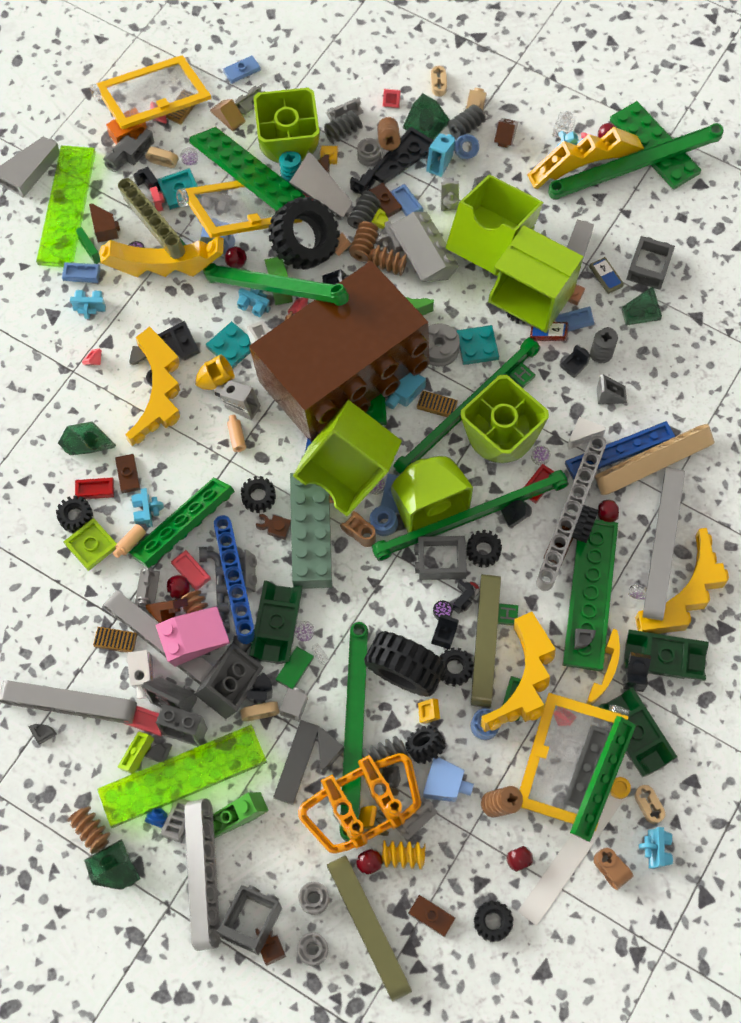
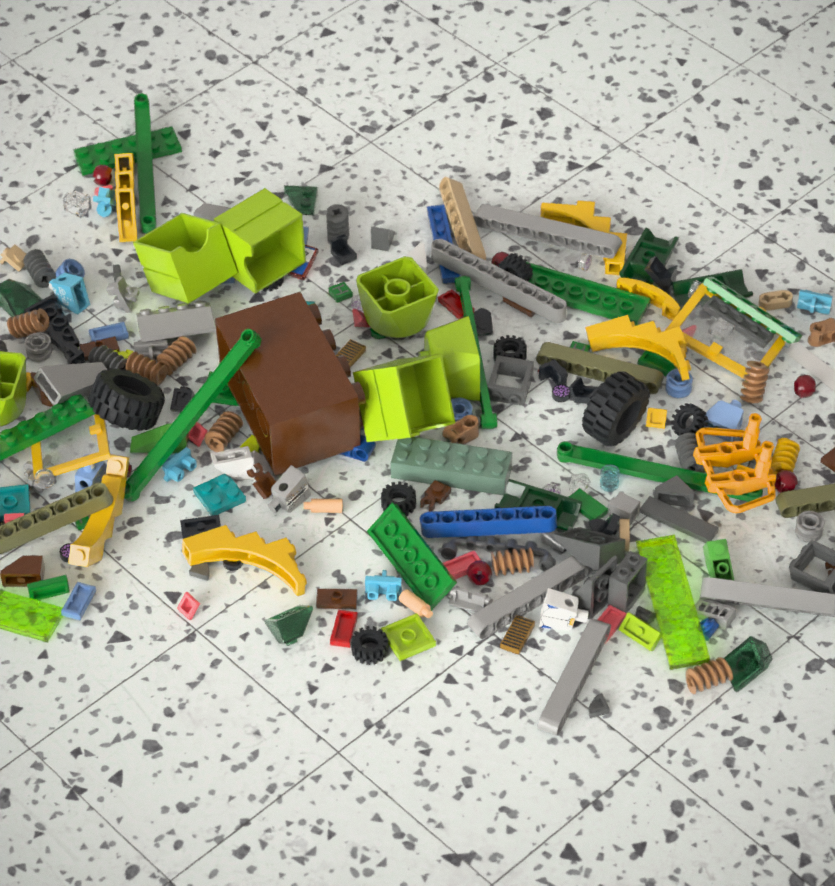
camera: 75 degrees left, 20 degrees down
(88, 305) = (125, 599): medium azure hips -> none
(166, 610) = (498, 584): reddish brown slope -> none
(192, 635) = (541, 558): bright pink slope -> none
(214, 373) = (253, 507): yellow helmet -> none
(247, 374) = (263, 481): none -> reddish brown plate
(289, 164) = (34, 399): teal piece -> none
(333, 678) = (609, 478): none -> clear light blue wheel
(505, 132) = (64, 243): reddish brown slope -> none
(528, 348) = (316, 280): green piece -> none
(583, 638) = (618, 302): dark grey tile -> none
(646, 276) = (276, 177): dark grey window -> none

